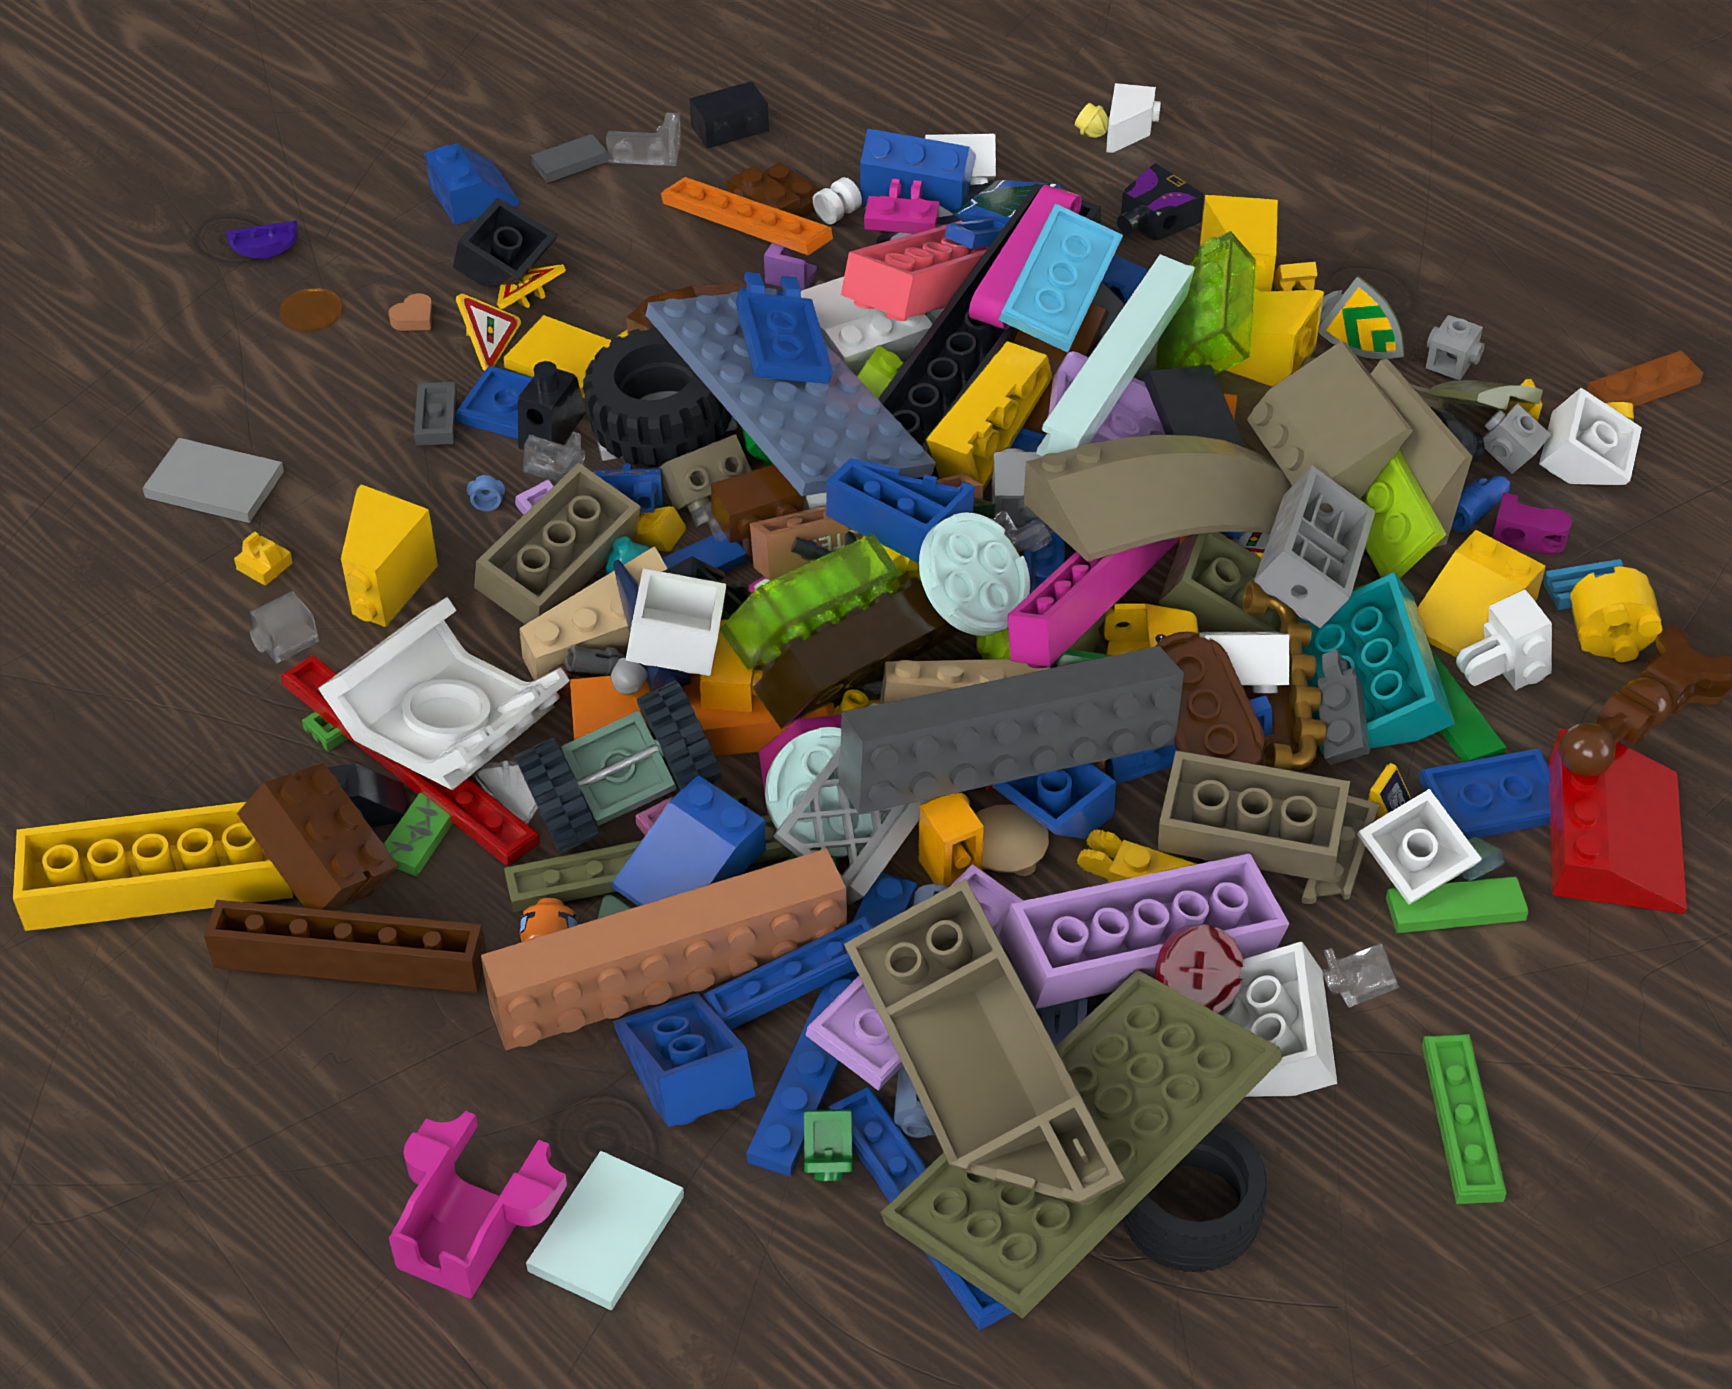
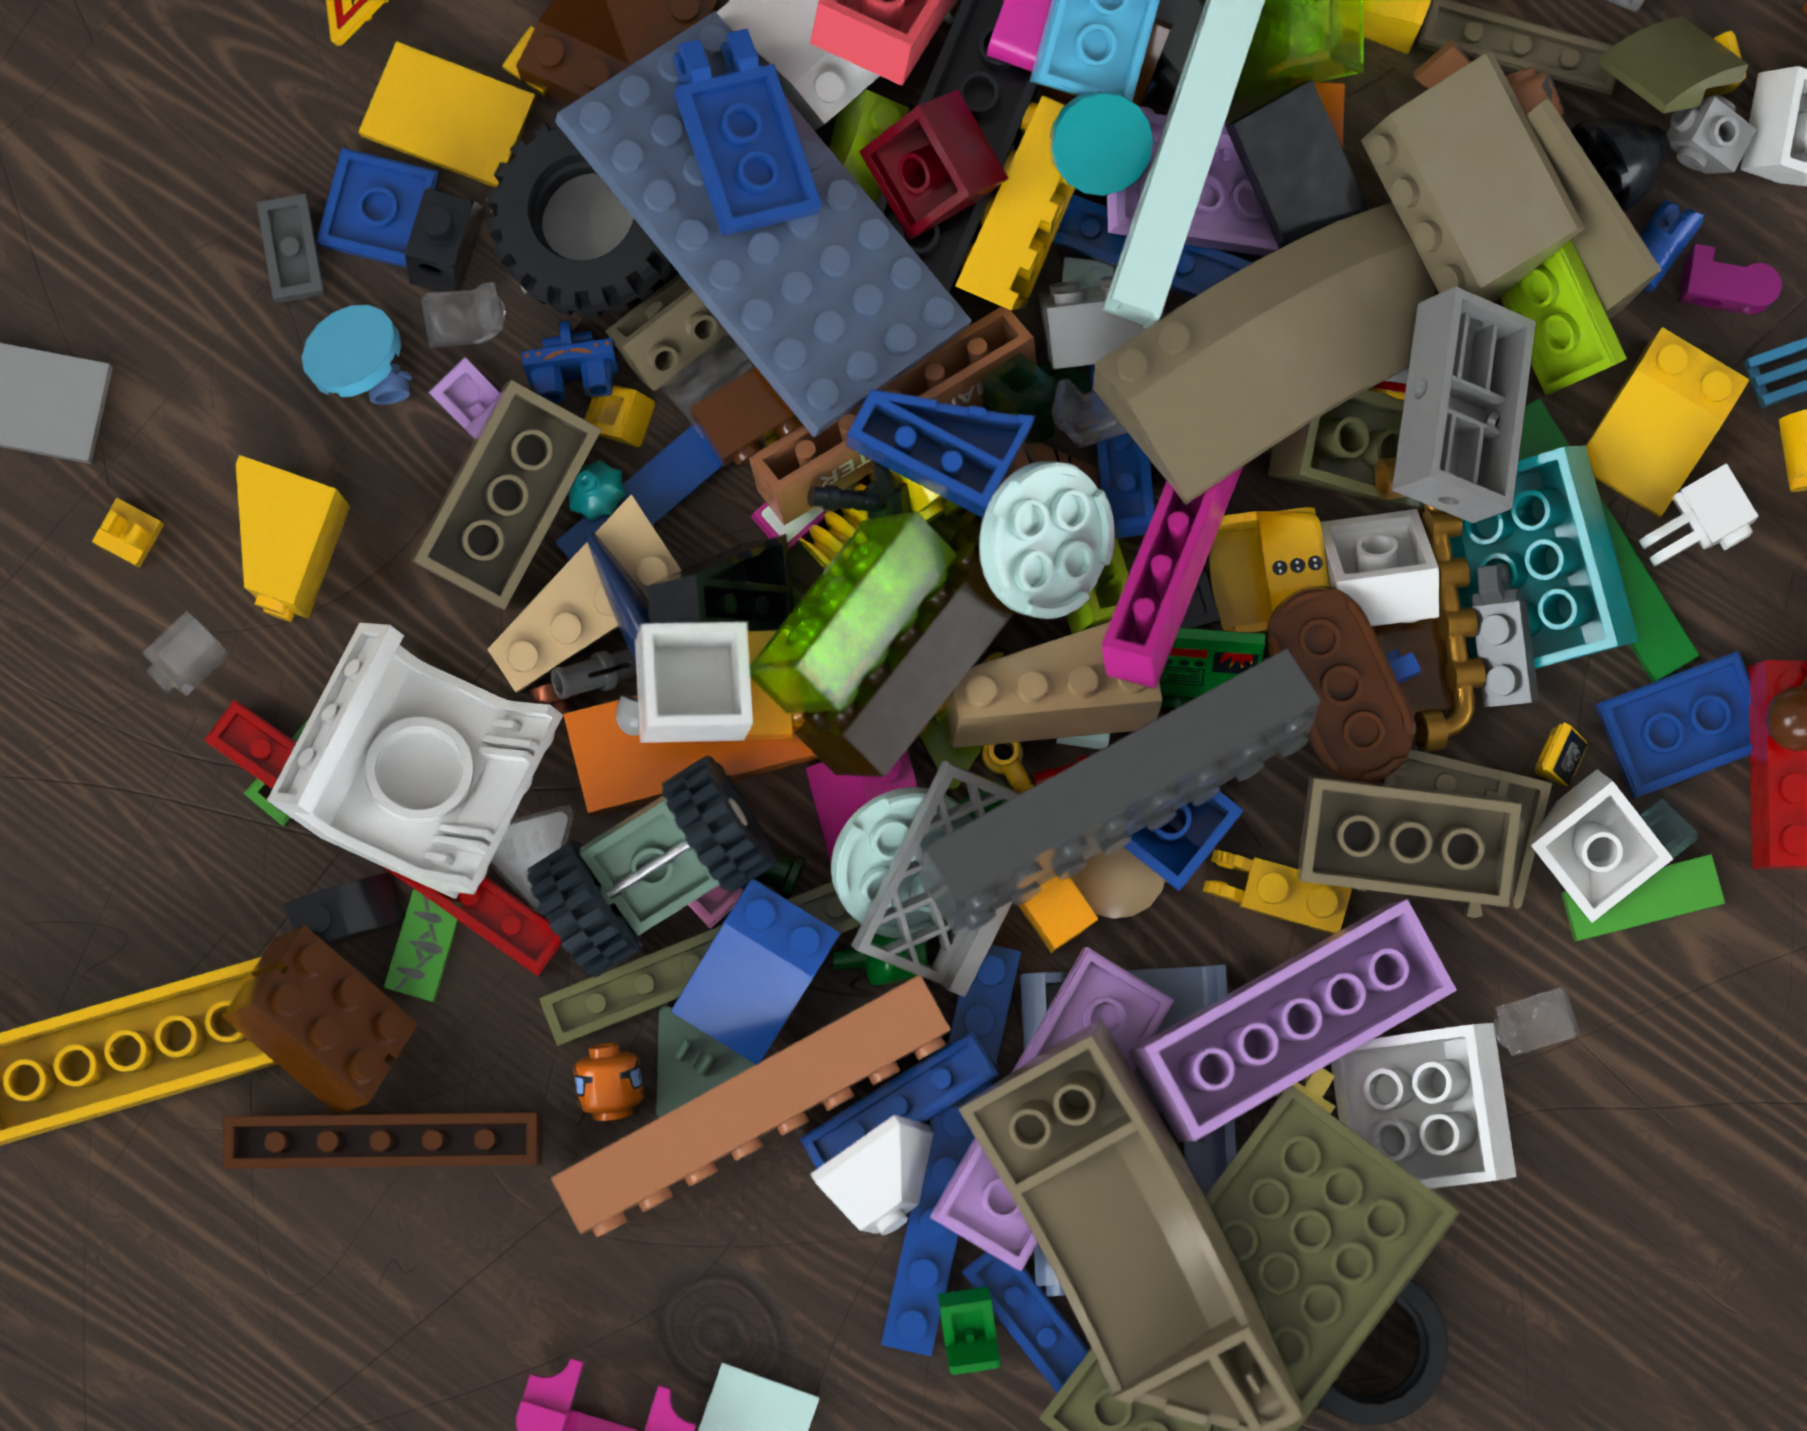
camera: 10 degrees left, 35 degrees up
(310, 309) = (71, 55): clear orange piece -> none
(413, 314) = (216, 52): nougat tile -> none
(464, 465) = (351, 350): none -> medium azure tile
(487, 327) = (328, 86): piece -> none
(686, 1059) = (791, 1230): blue slope -> none
(768, 1000) = (879, 1175): none -> white slope
(920, 370) = (933, 163): none -> dark red slope
(1046, 357) = (1101, 142): none -> teal tile
(1201, 965) = (1360, 1075): tile -> none
(1463, 1119) = (1653, 1191): bright green tile -> none

